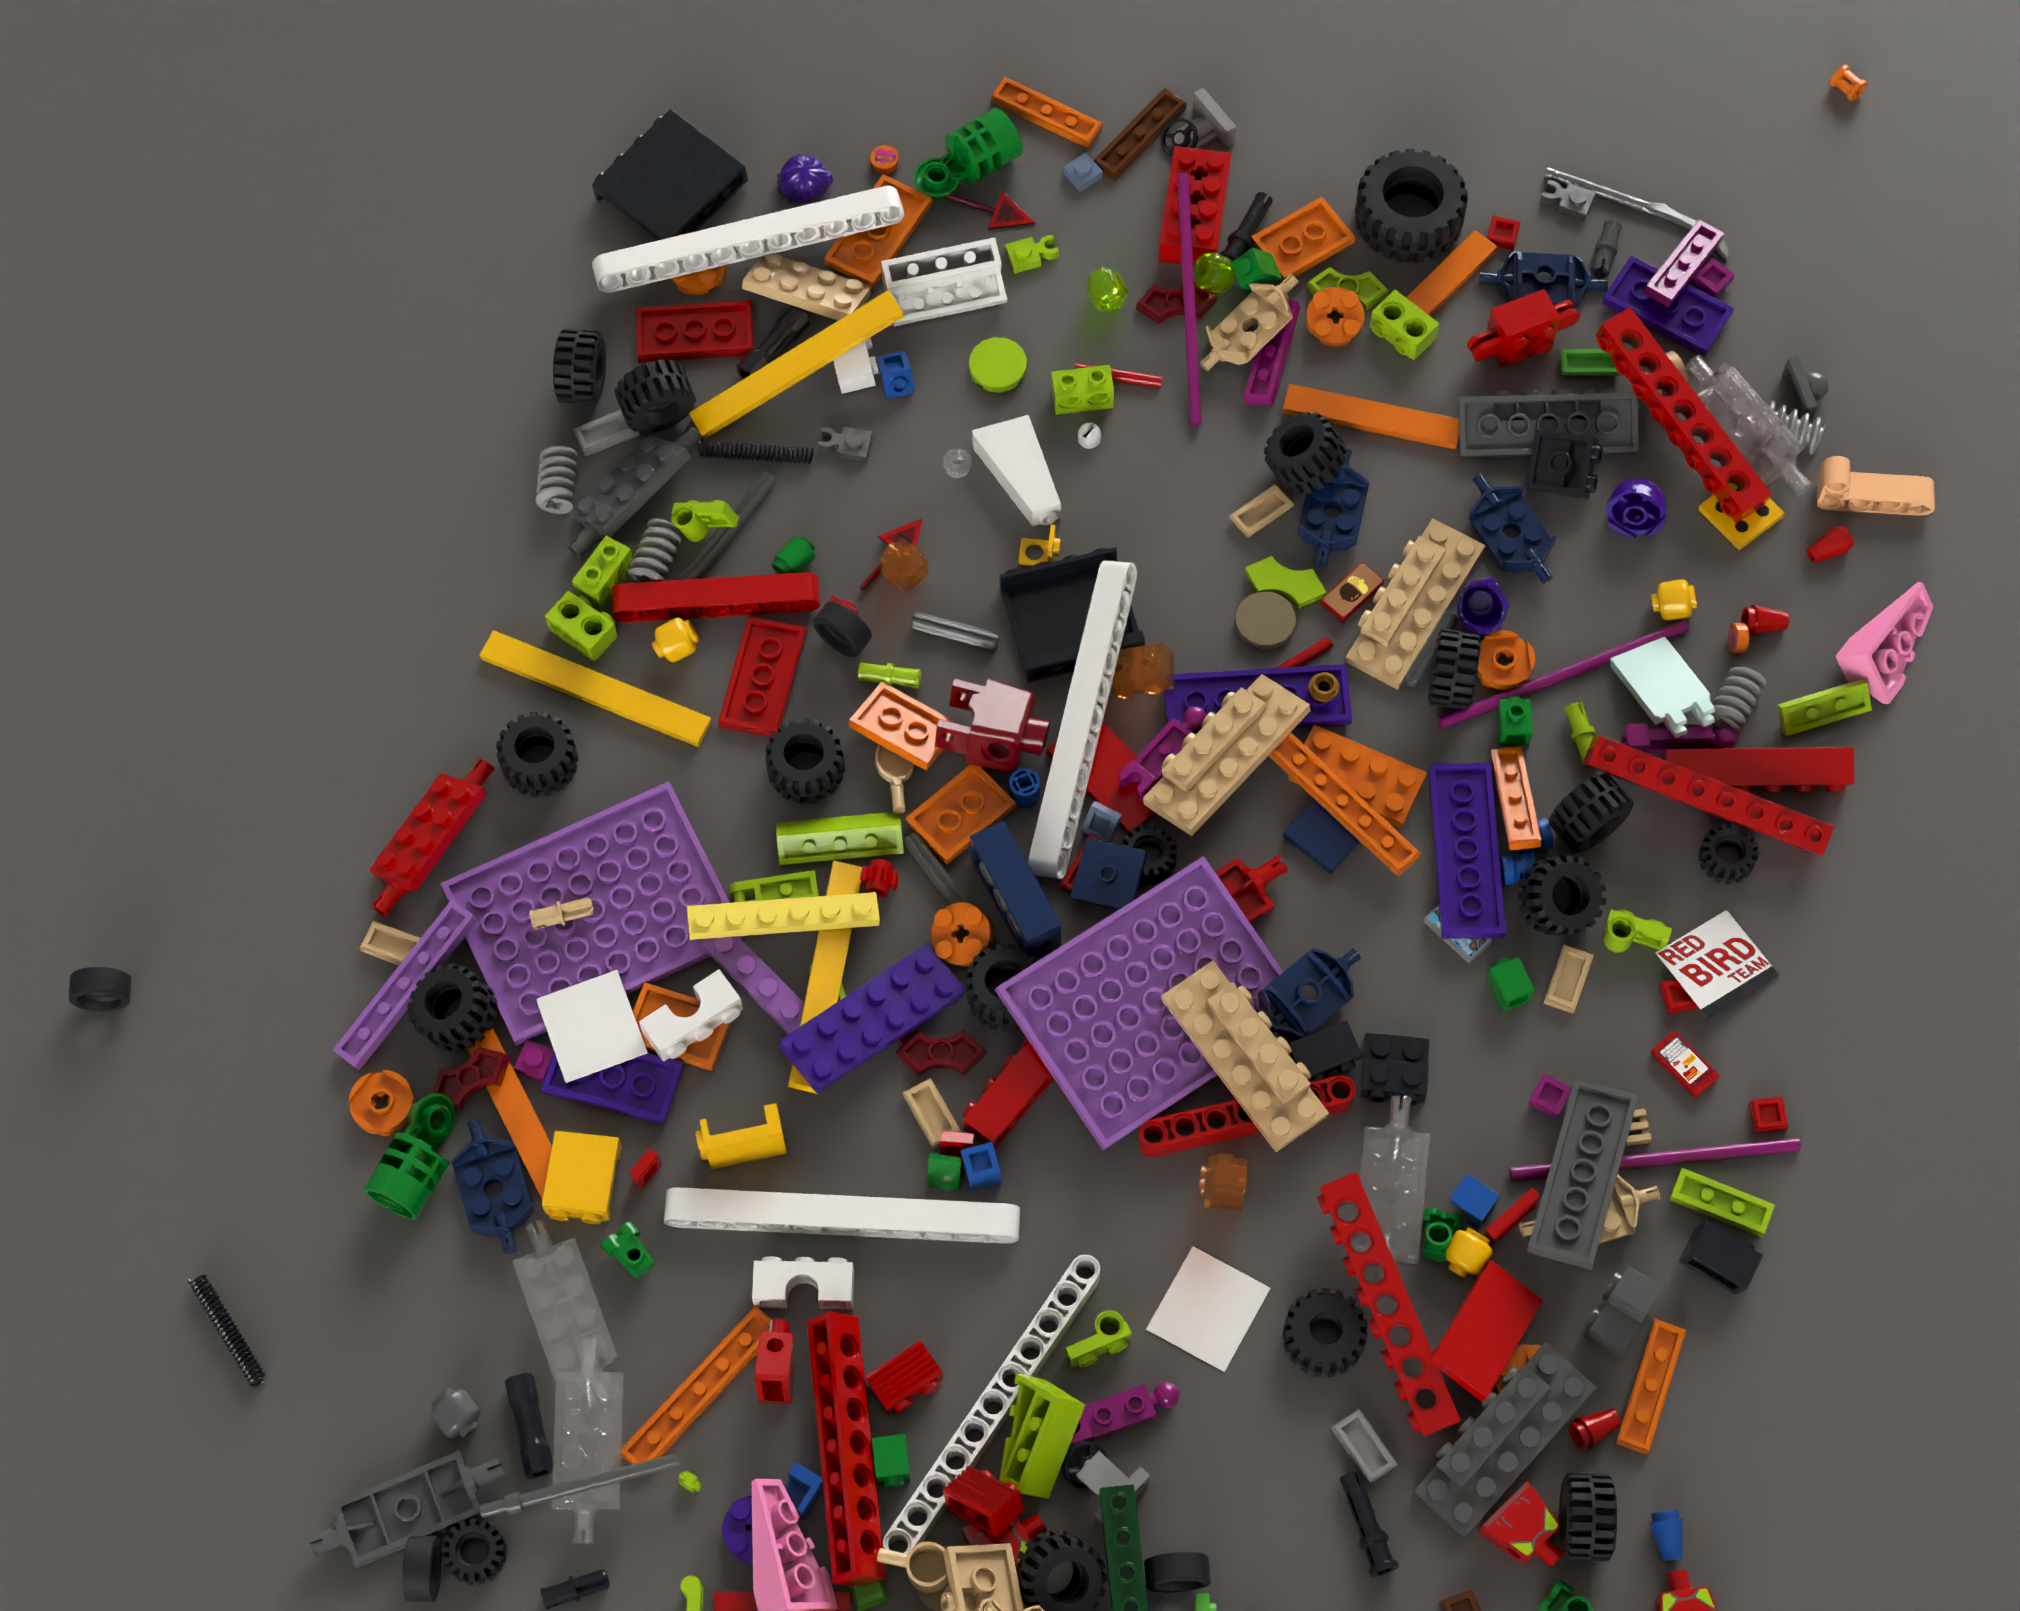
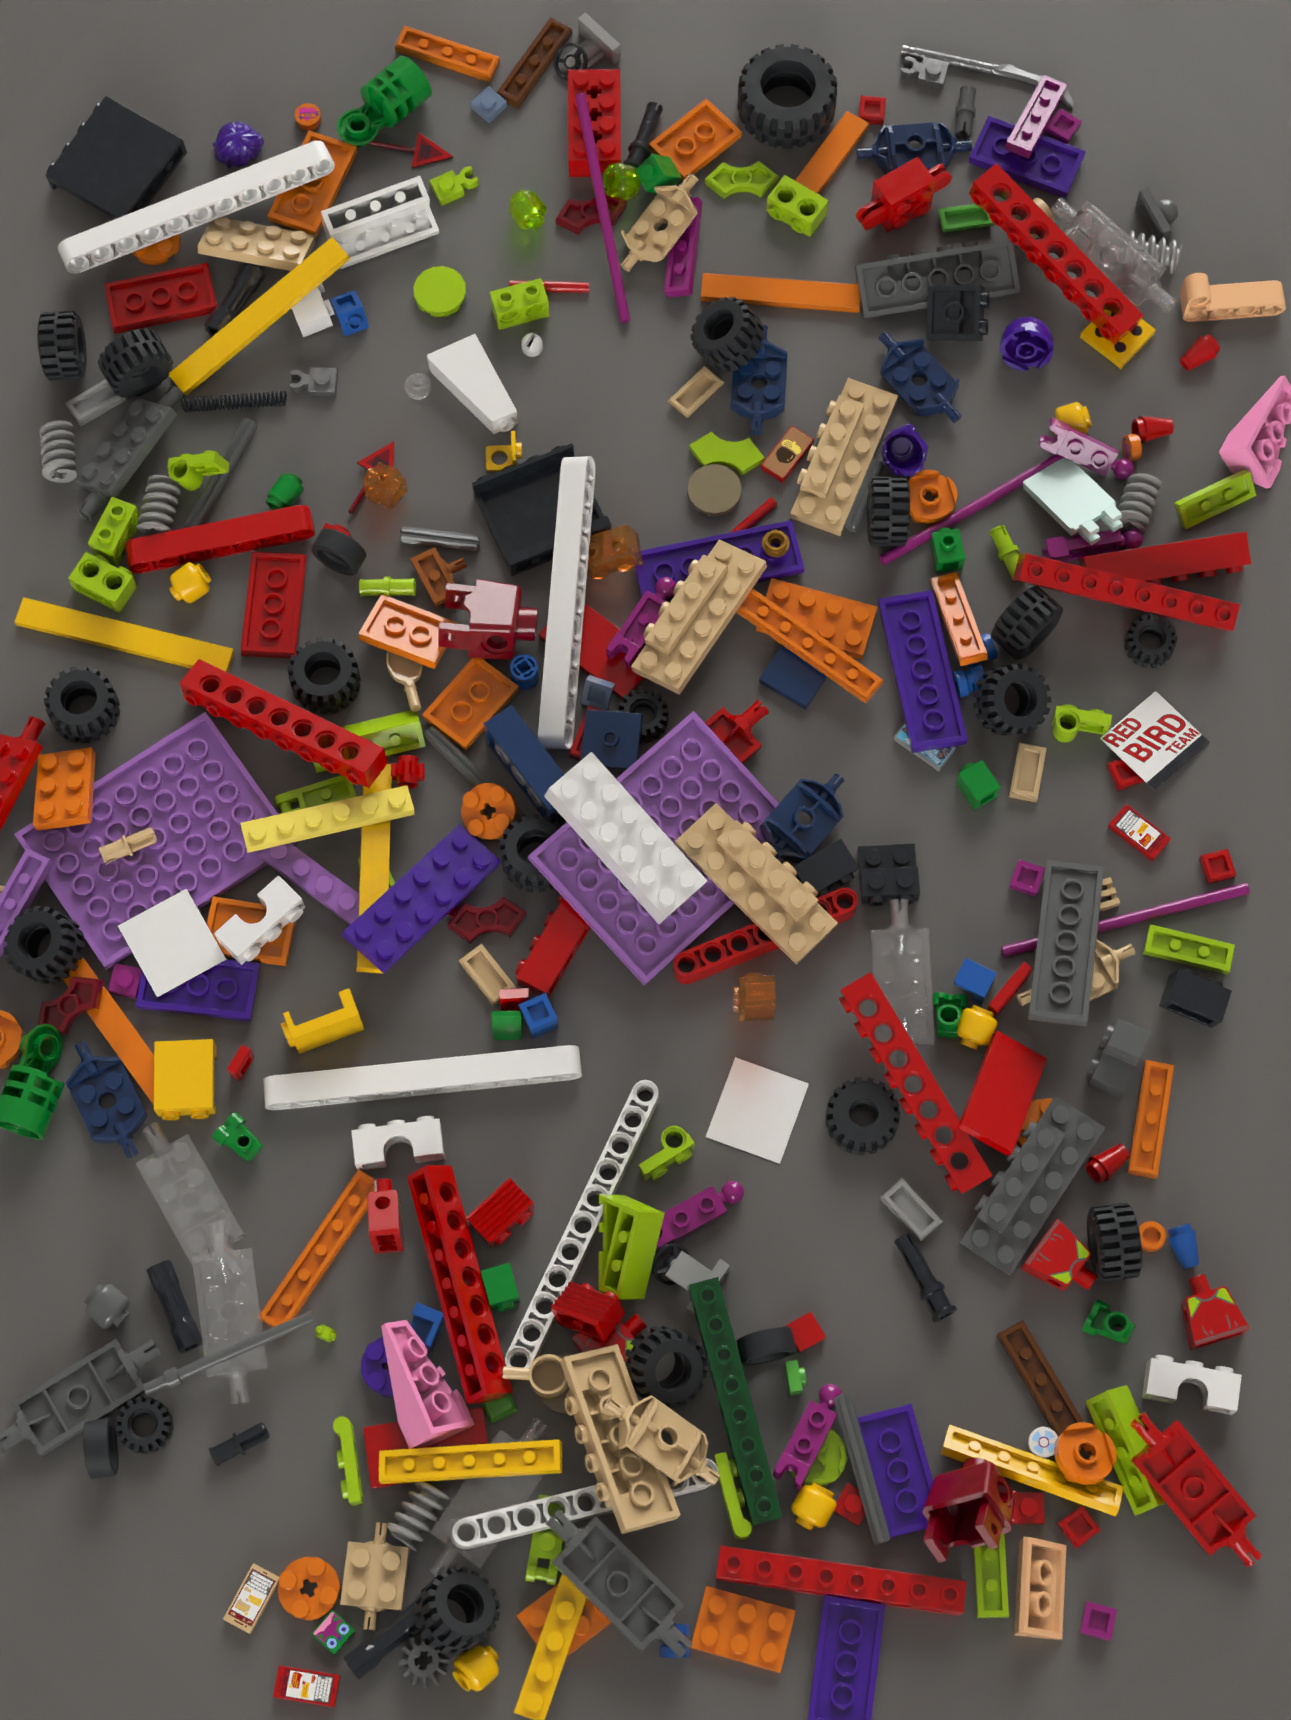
camera: 10 degrees left, 5 degrees up
(503, 842) = (64, 789): none -> orange plate
(752, 806) = (251, 700): none -> red brick
(944, 666) = (436, 573): none -> dark orange plate
(1106, 984) = (625, 838): none -> white brick
(1225, 1565) = (806, 1332): none -> red tile
(1343, 302) = (743, 194): orange plate -> none
(1632, 1518) = (1152, 1236): none -> orange tile
(1685, 634) = (1085, 450): none -> plate

